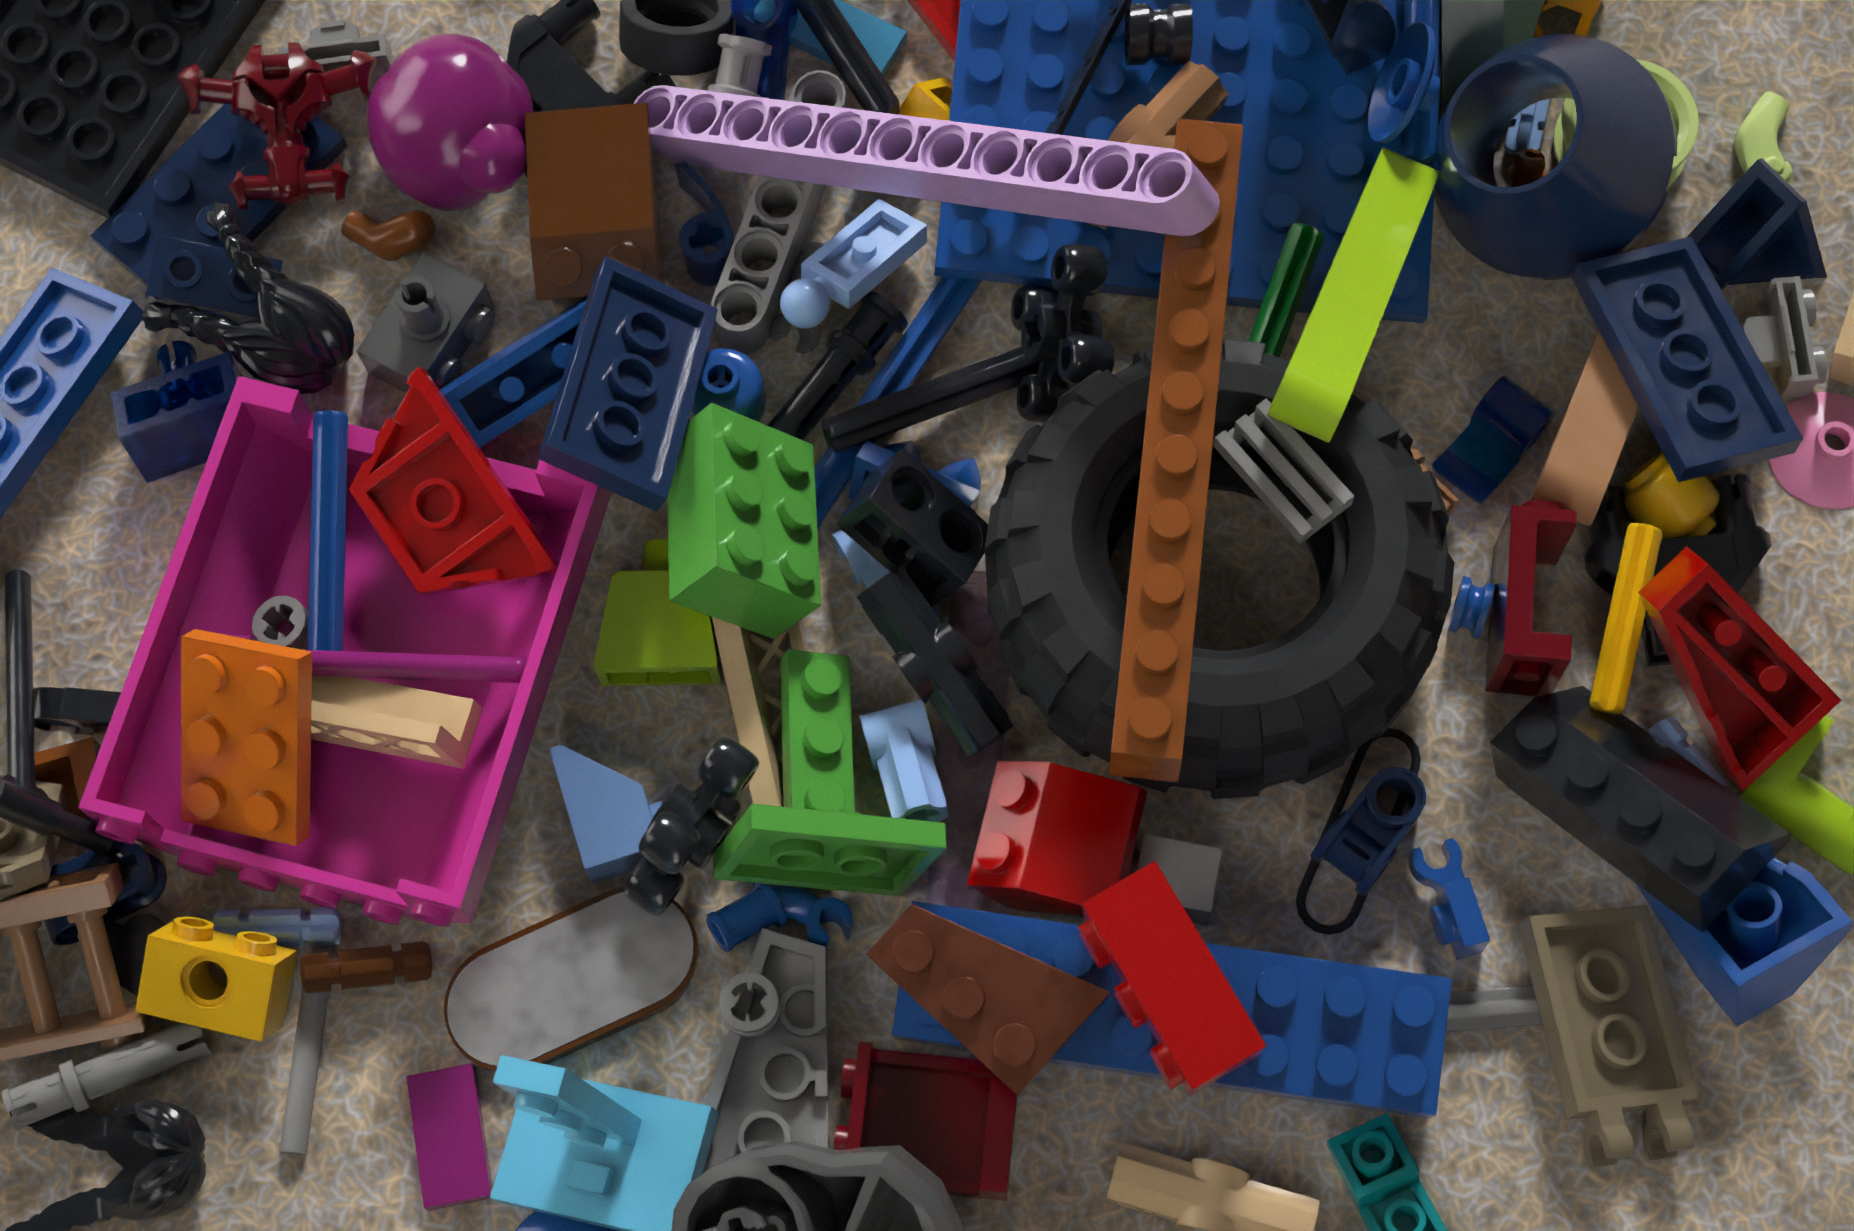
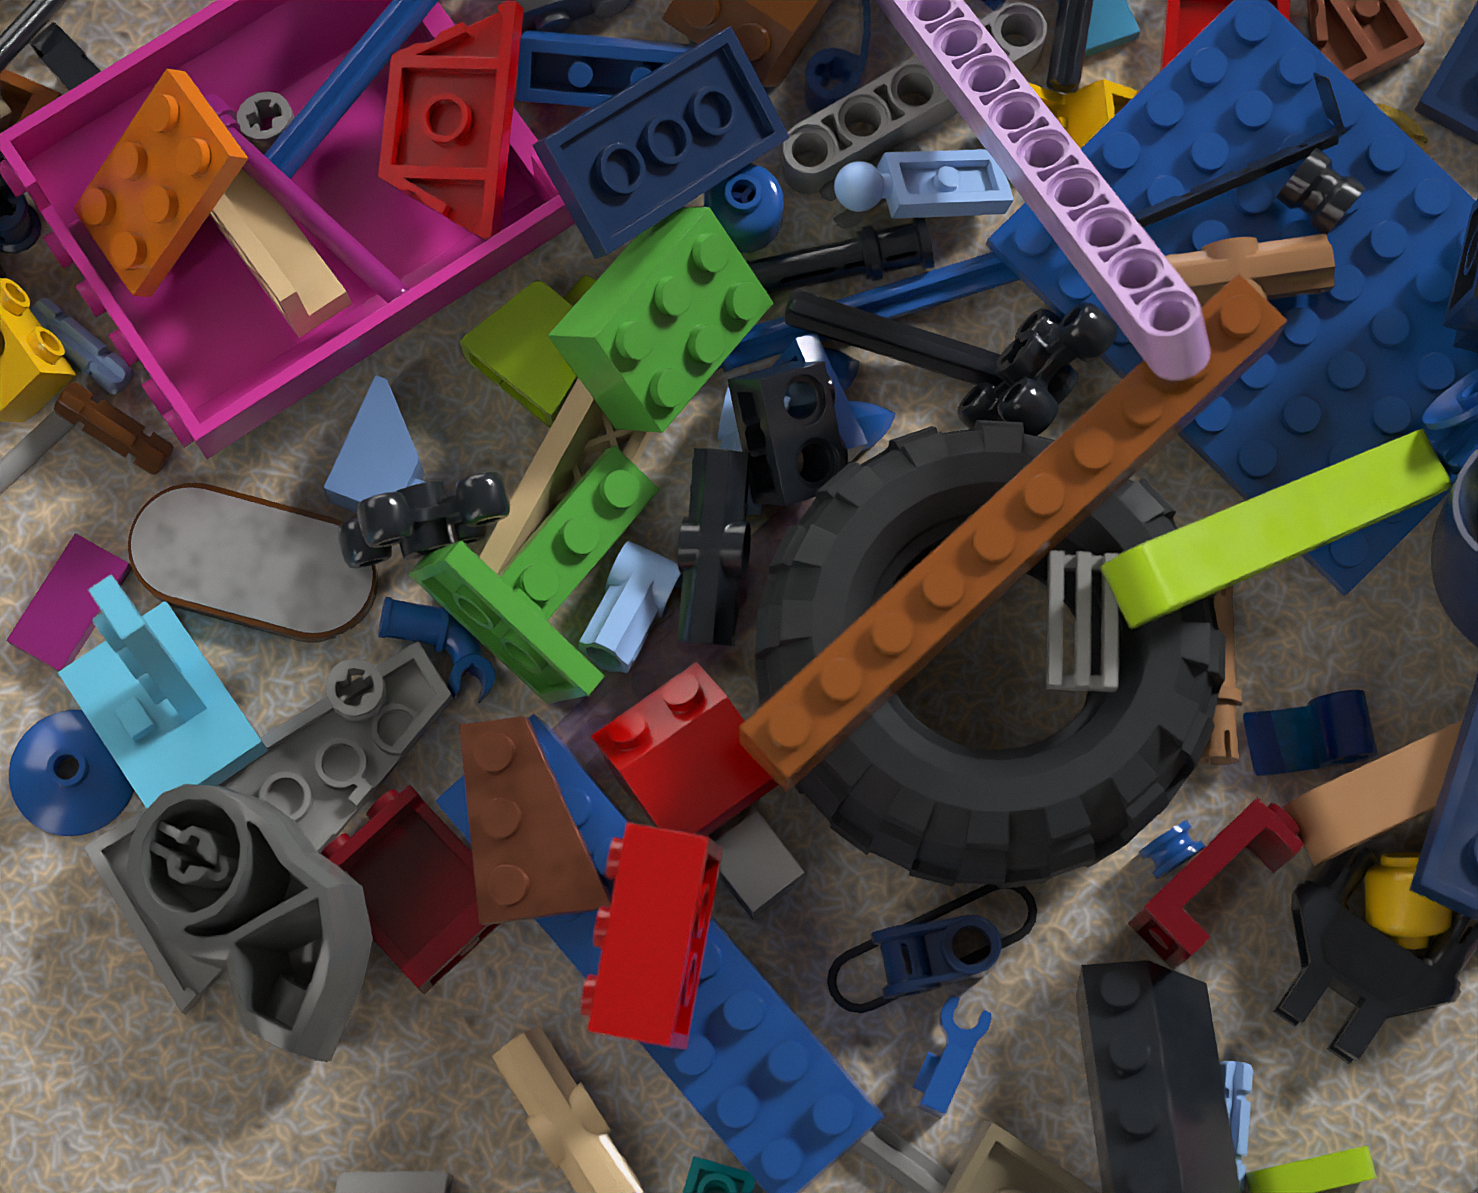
camera: 35 degrees right, 5 degrees up
(1287, 287) = (1244, 480): green axle -> none
(1625, 619) = (1278, 960): yellow axle -> none
(1734, 668) = (1325, 1070): red wedge -> none

